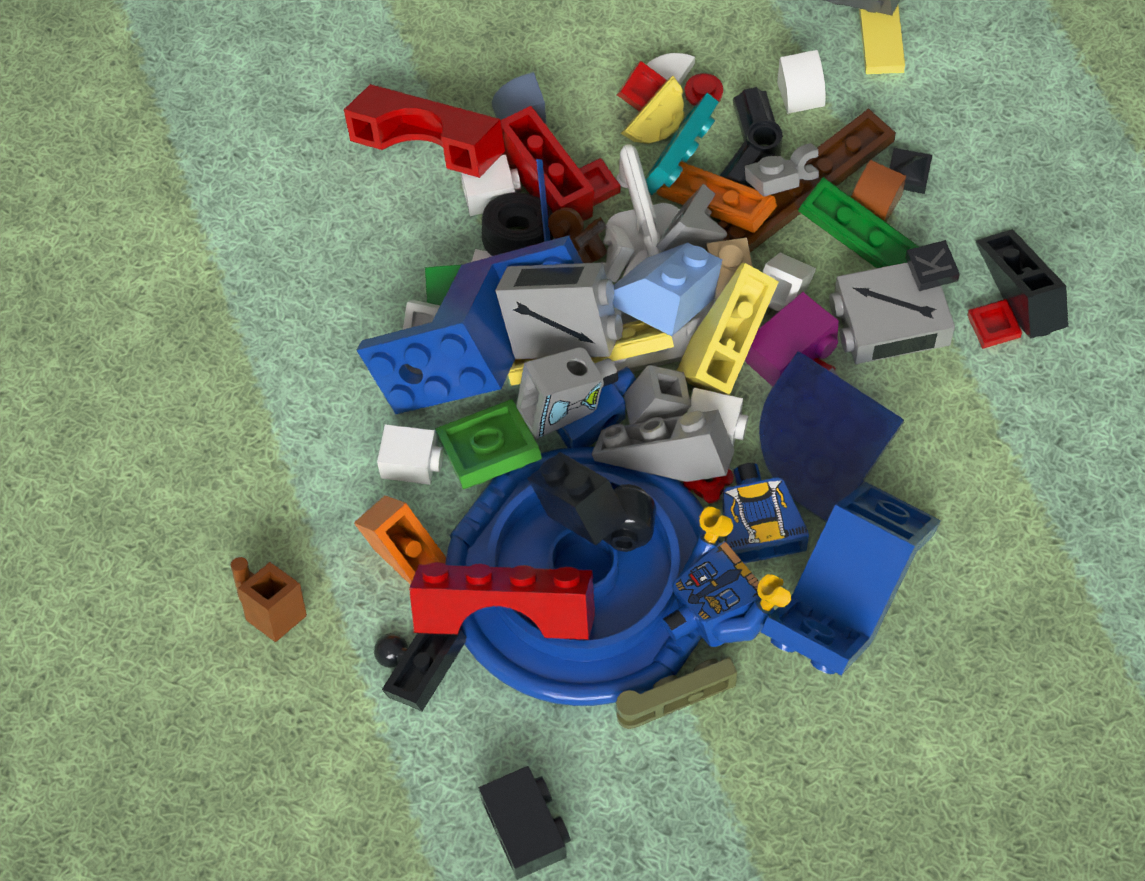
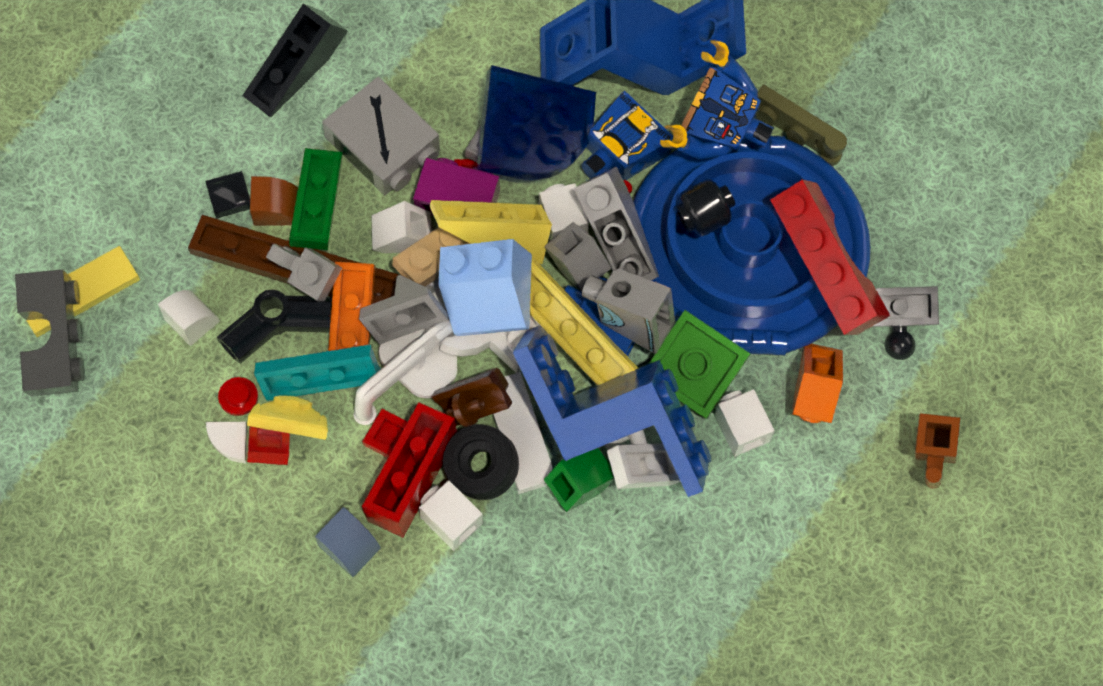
camera: 130 degrees left, 5 degrees up
(388, 117) = (436, 644): red arch -> none
(524, 822) = (961, 171): black brick -> none
(543, 200) = (467, 430): blue piece -> none
(559, 309) = (569, 340): light grey brick -> none
(578, 498) = (727, 231): black brick -> none
(618, 252) = (459, 363): white tile -> none
(932, 265) = (334, 111): black tile -> none
(994, 323) = (343, 68): red tile -> none

